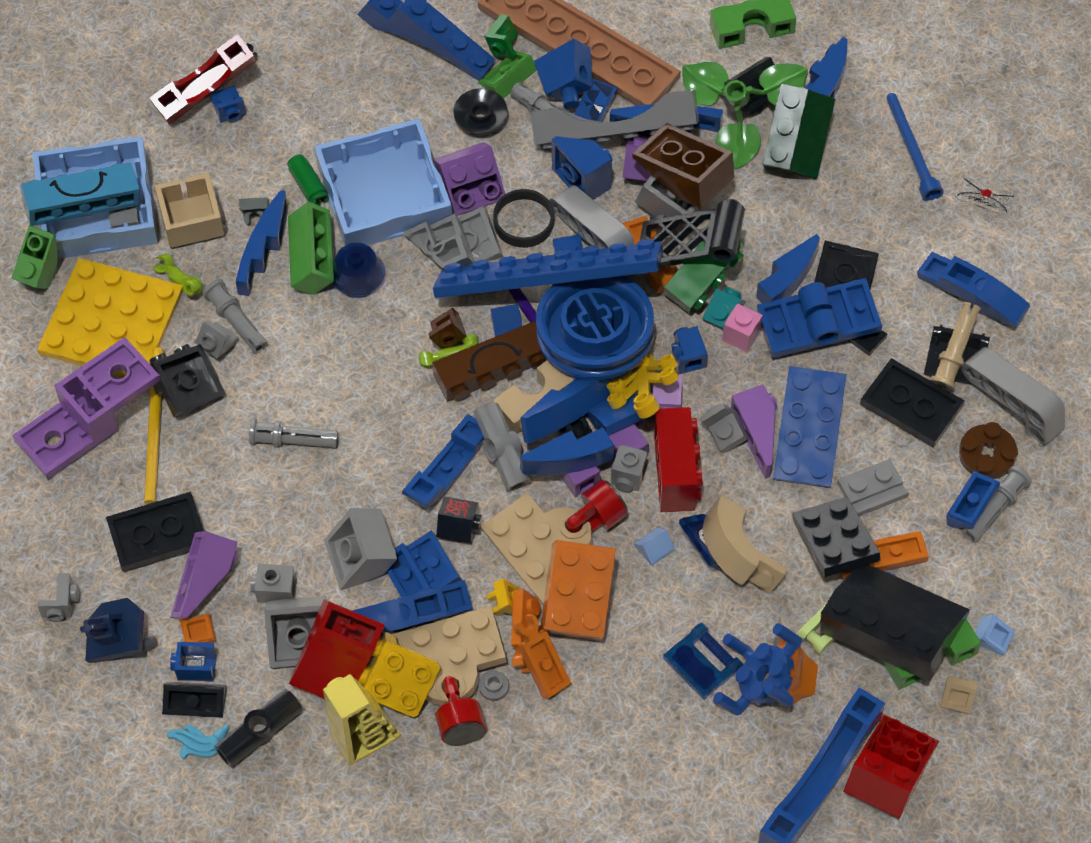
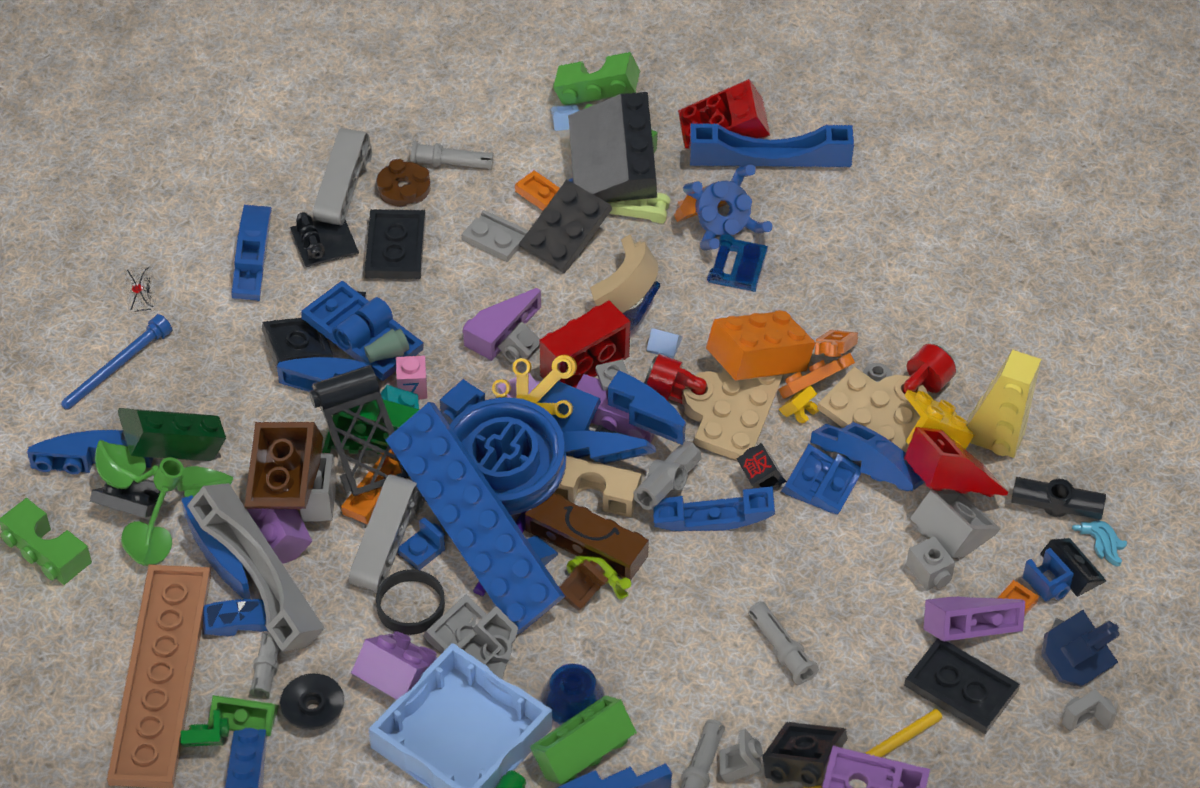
camera: 125 degrees left, 10 degrees down
(360, 547) = (848, 519): light grey slope -> none
(566, 72) = (221, 647): blue torso -> none
(582, 164) = (329, 566): blue slope -> none
(776, 313) = (387, 346): none -> sand green cone
(809, 427) = (472, 285): blue plate -> none
(952, 358) = (339, 226): tan pin -> none
(972, 501) = (462, 167): blue slope -> none
(1003, 668) = (617, 76): none -> bright green arch

